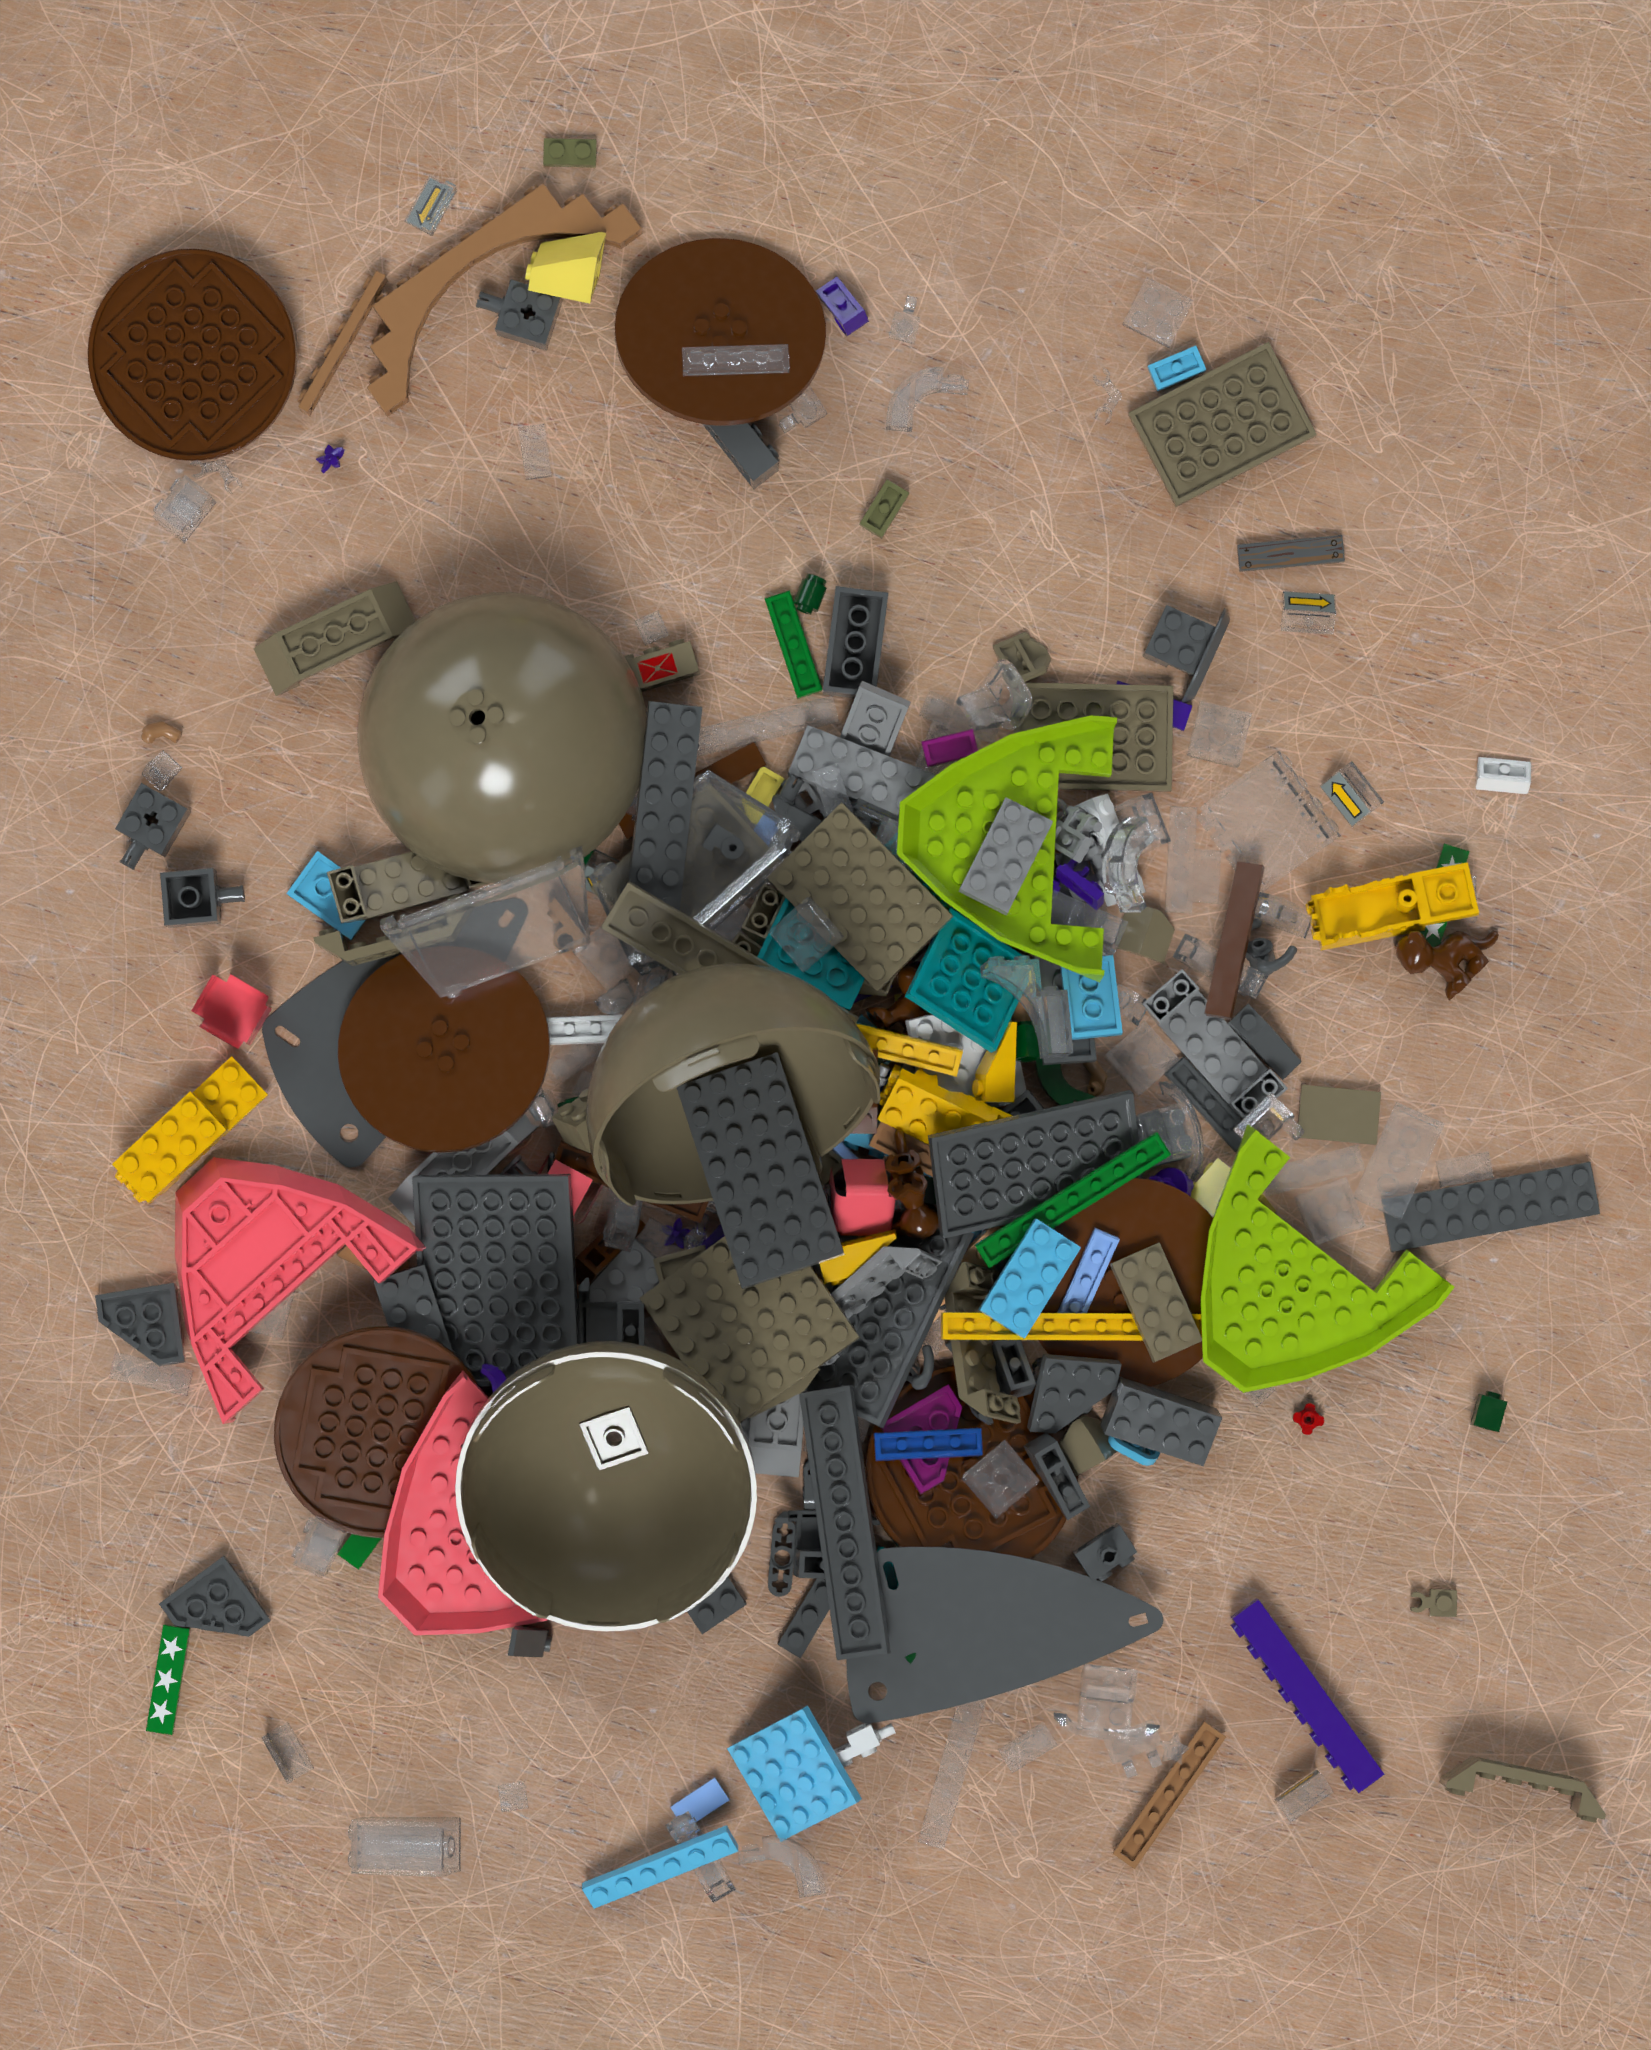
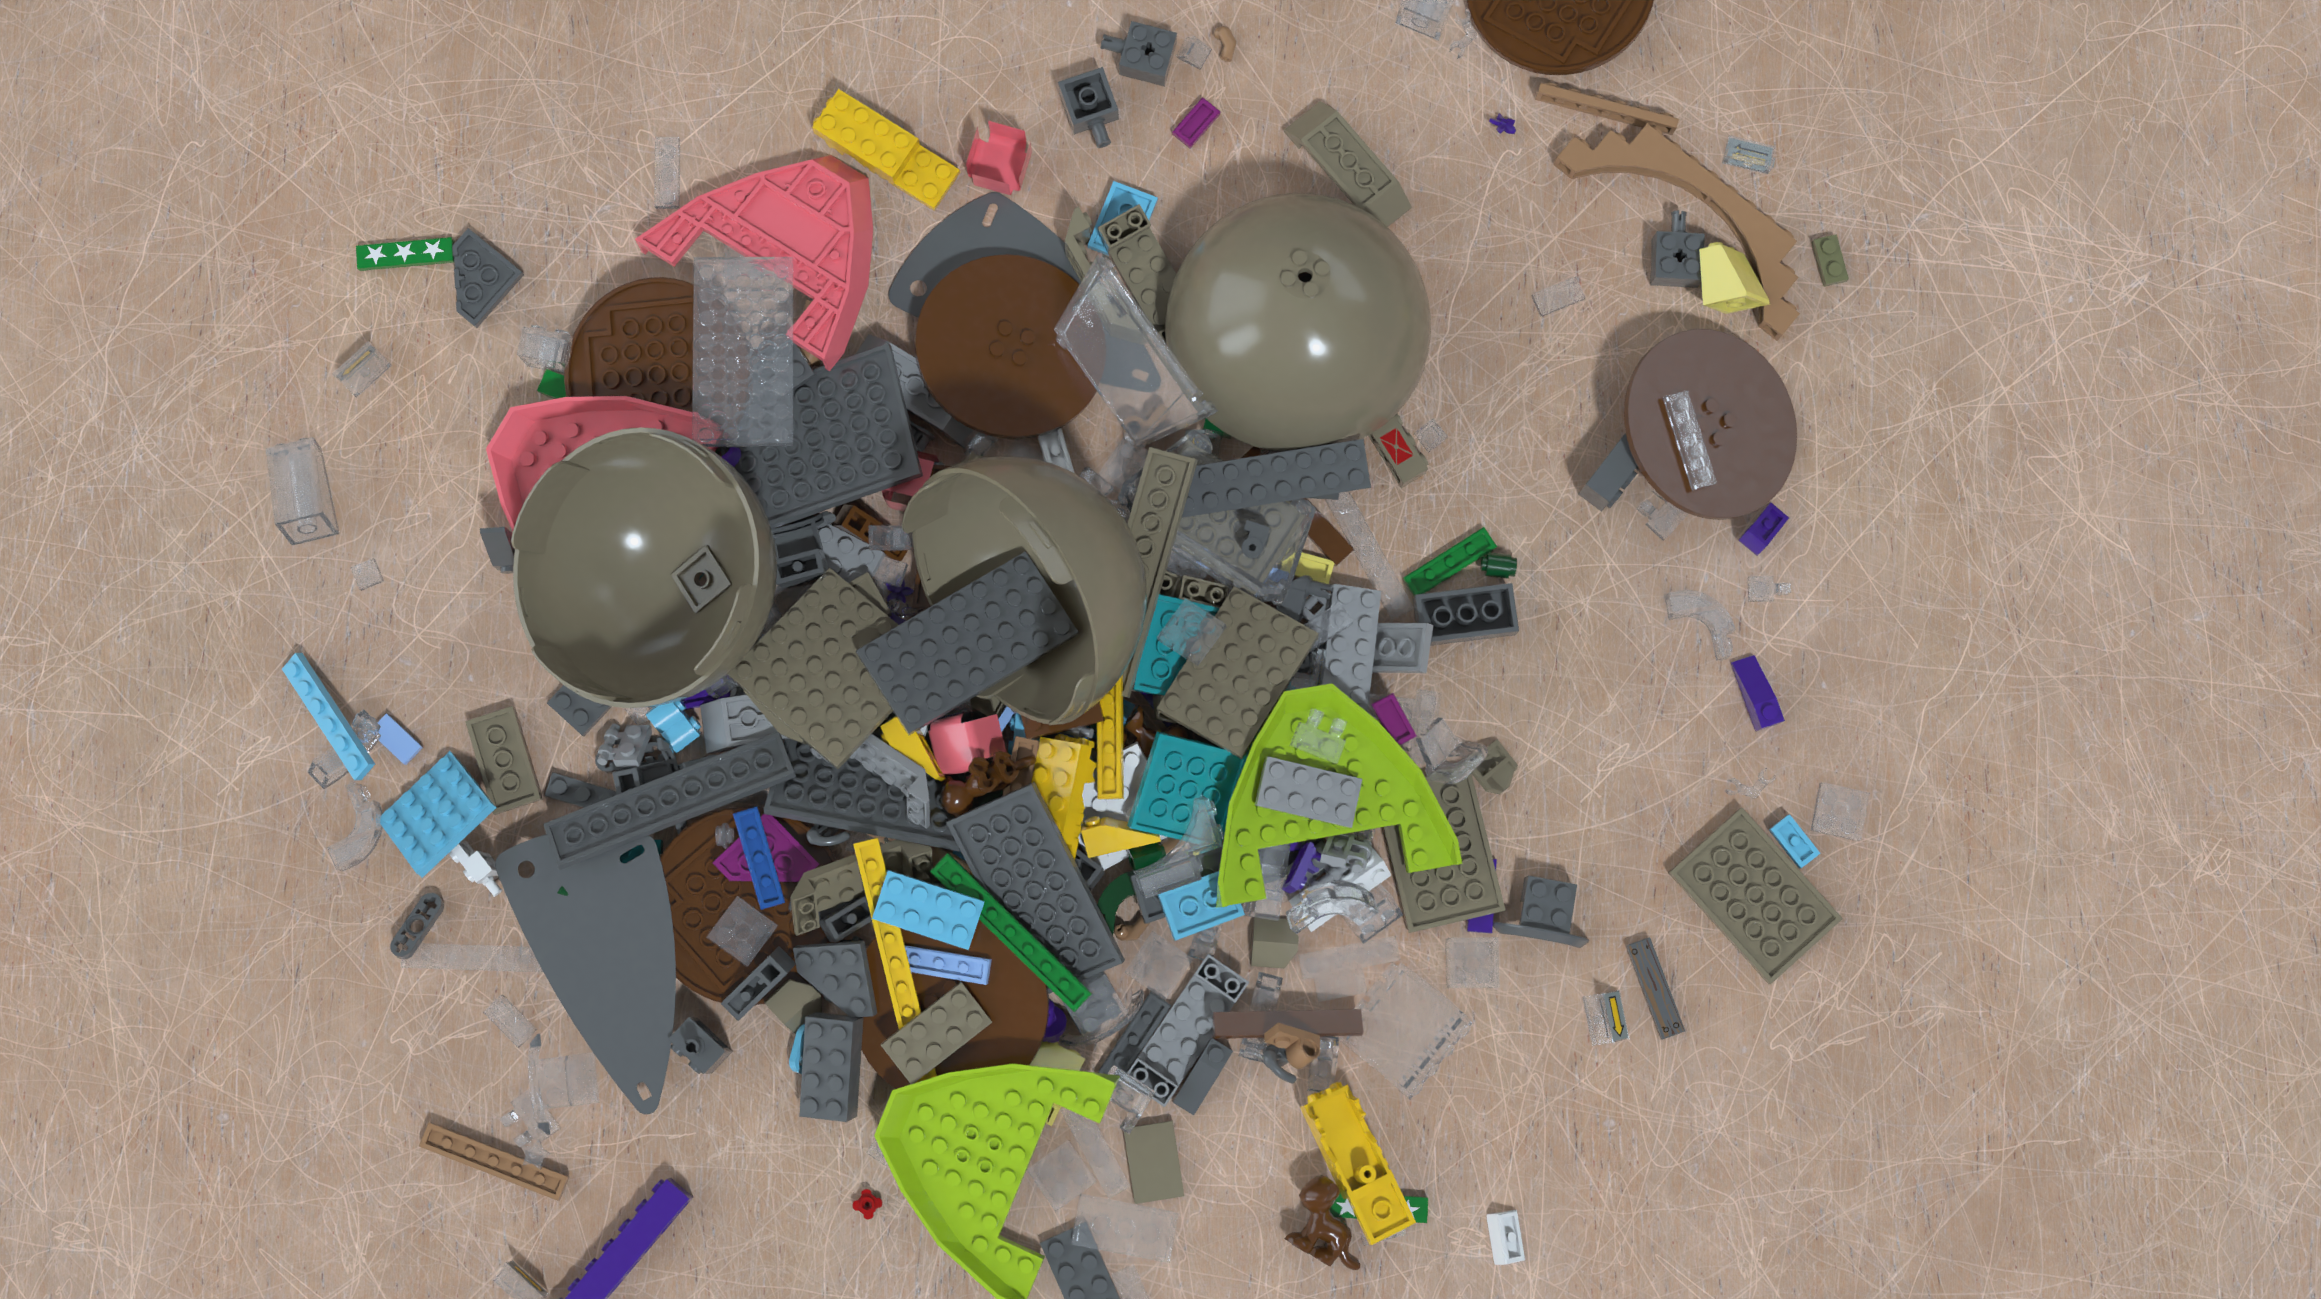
camera: 75 degrees right, 5 degrees down
(146, 1320) = (711, 156): dark grey plate -> none
(242, 788) = (1196, 123): none -> magenta tile
(388, 1331) = (743, 351): none -> clear plate
(750, 1692) = (503, 760): none -> dark tan plate
(770, 1499) = (674, 724): none -> medium azure brick
(771, 1552) = (631, 745): none -> light grey plate
(884, 509) = (1593, 611): olive plate -> none
(895, 1475) = (724, 835): none -> clear plate
(914, 1840) = (419, 936): none -> dark grey beam
(957, 832) = (1319, 743): none -> clear plate
(1013, 362) = (1757, 693): none -> dark purple slope
(1260, 933) = (1300, 1045): none -> medium nougat plate
(1351, 794) = (1451, 1100): panel -> none

